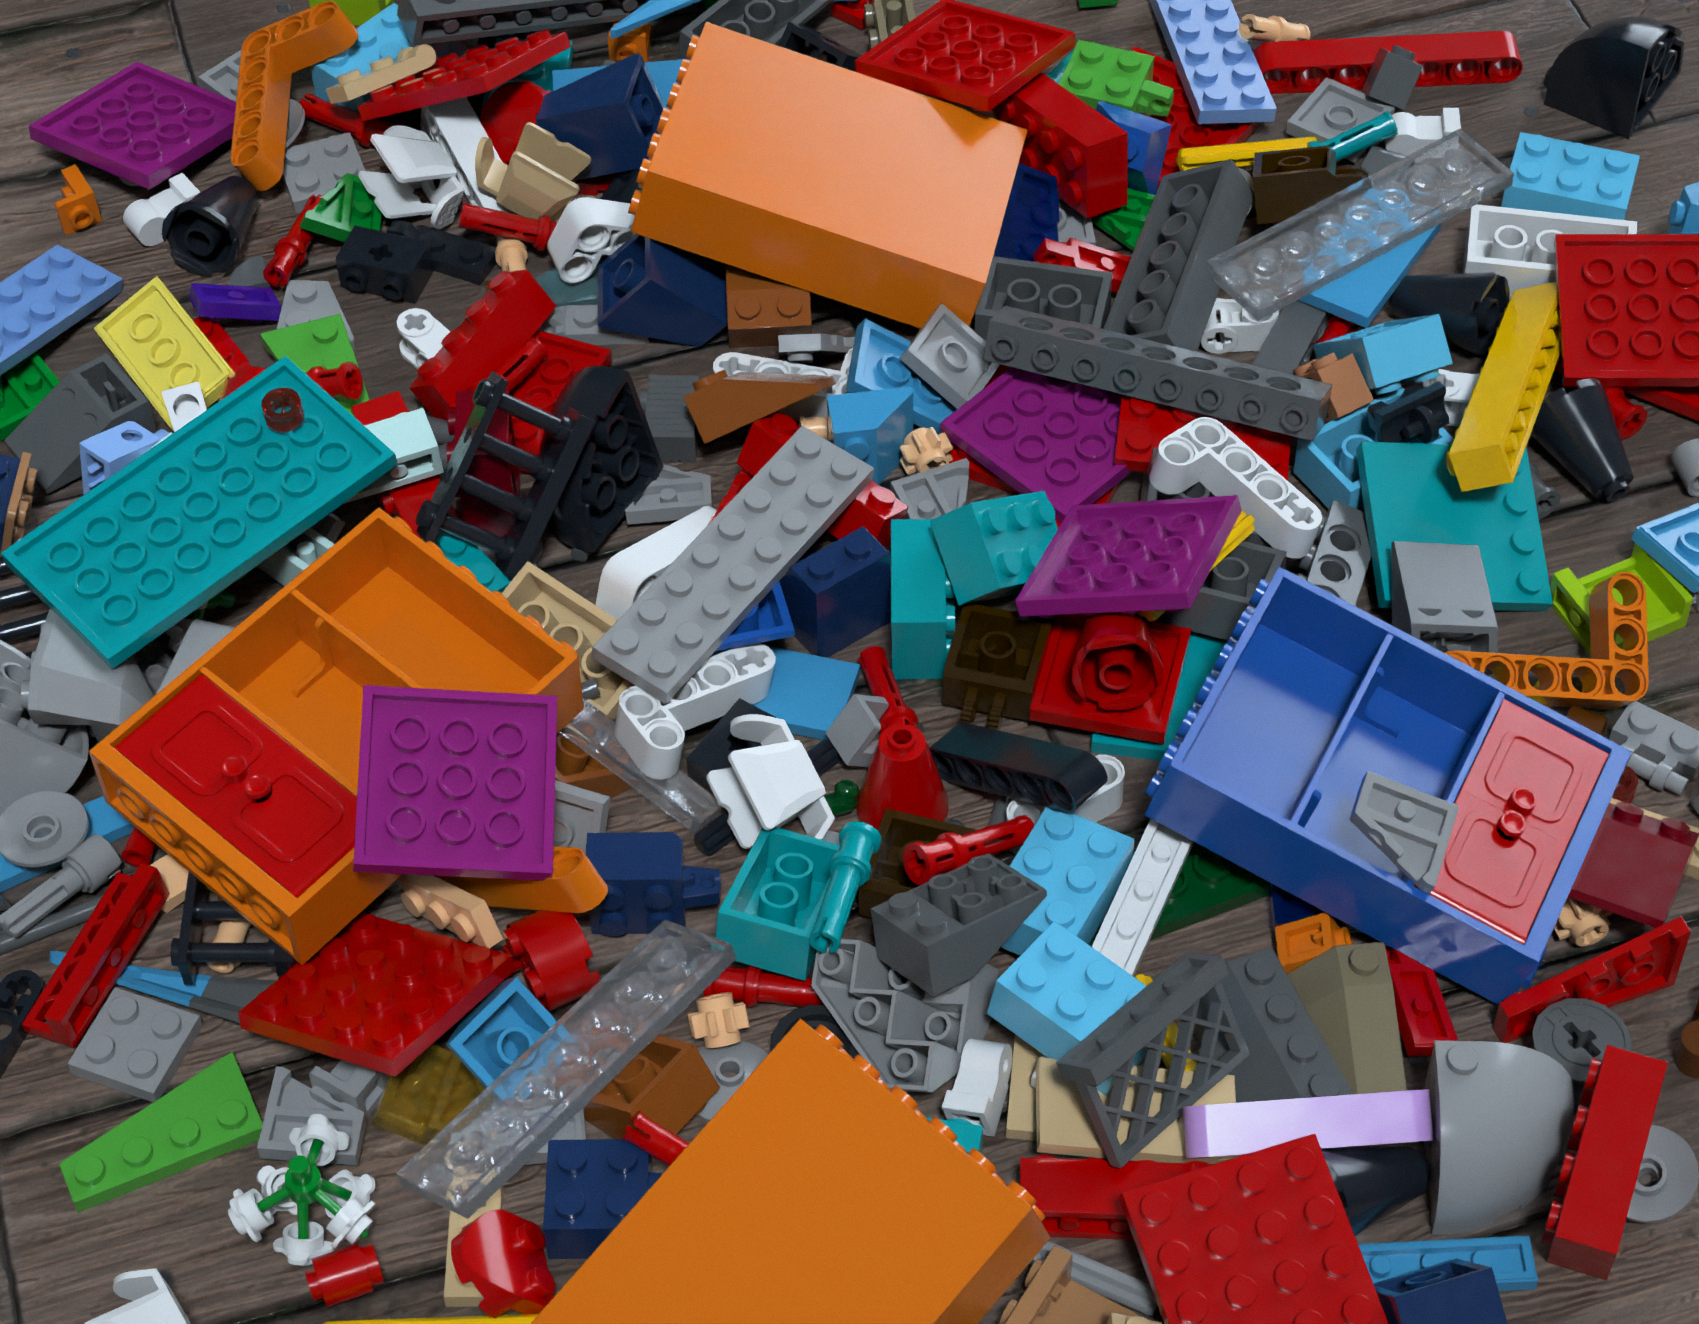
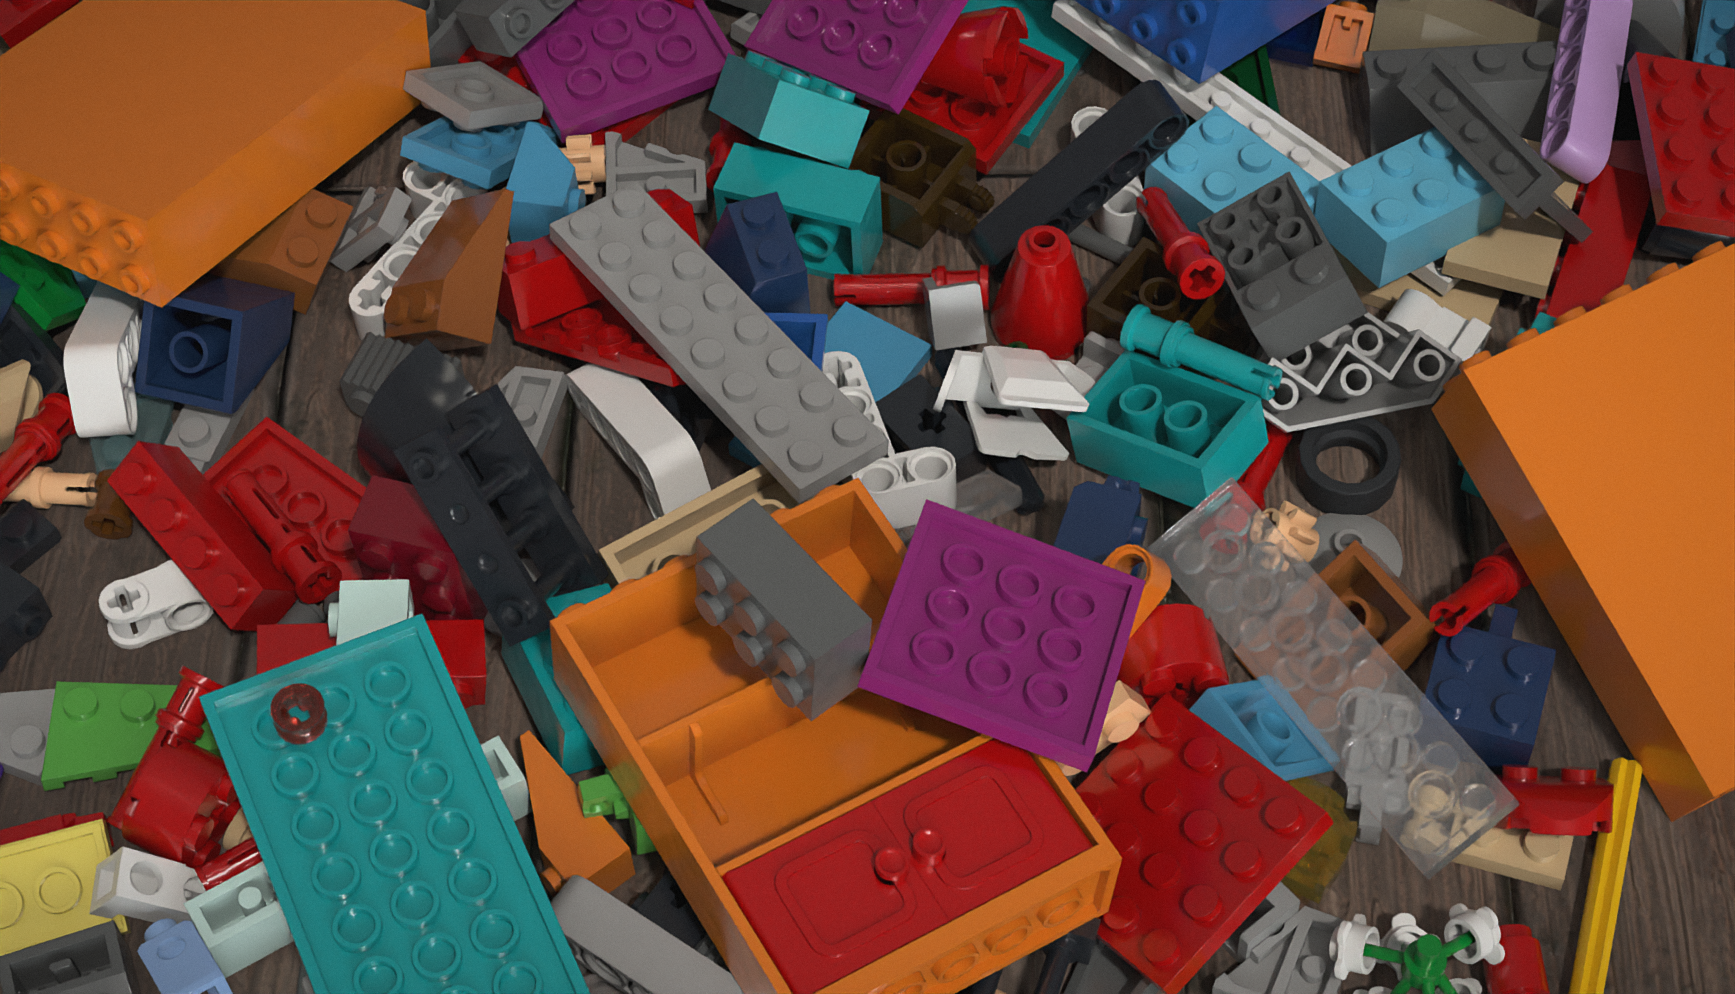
camera: 70 degrees left, 5 degrees up
(404, 617) = (781, 610): none -> dark grey brick

